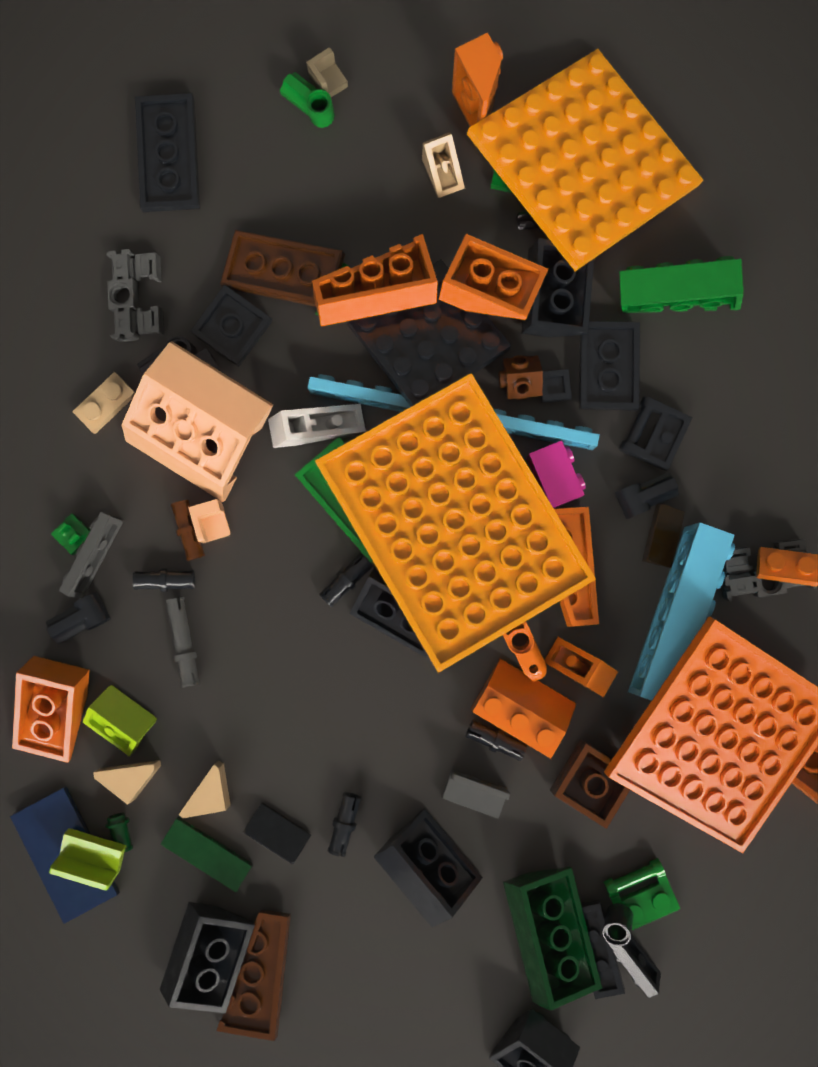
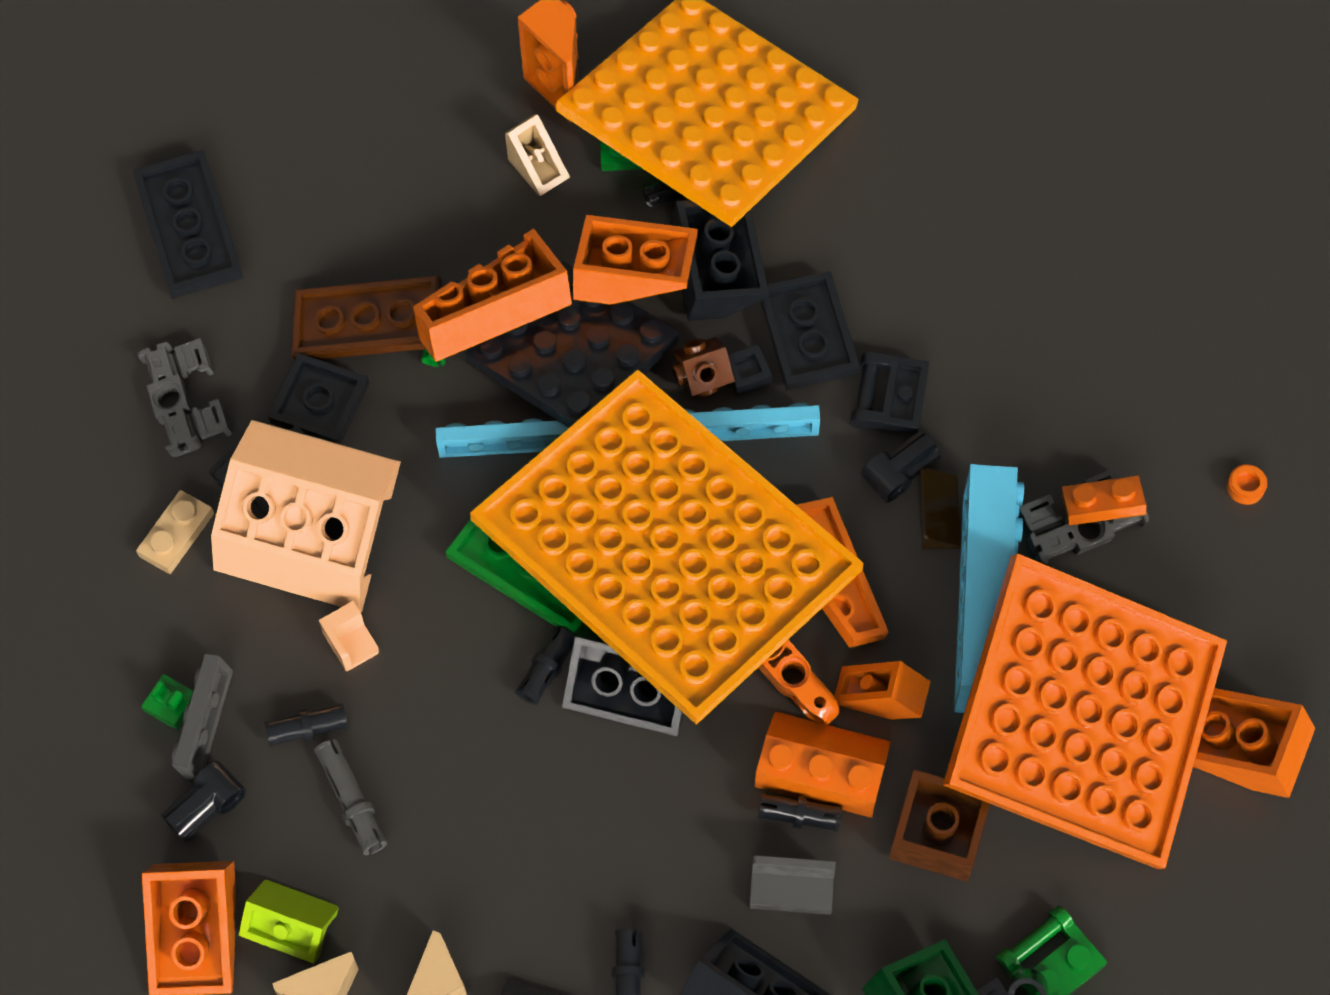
camera: 15 degrees left, 20 degrees down
(186, 530) = (322, 656): reddish brown pin -> none
(308, 98) = (351, 124): green piece -> none
(315, 424) = (451, 488): white slope -> none
(325, 73) = (363, 93): dark tan panel -> none
(555, 474) = (780, 463): dark pink brick -> none
(682, 286) = (869, 218): green wedge -> none

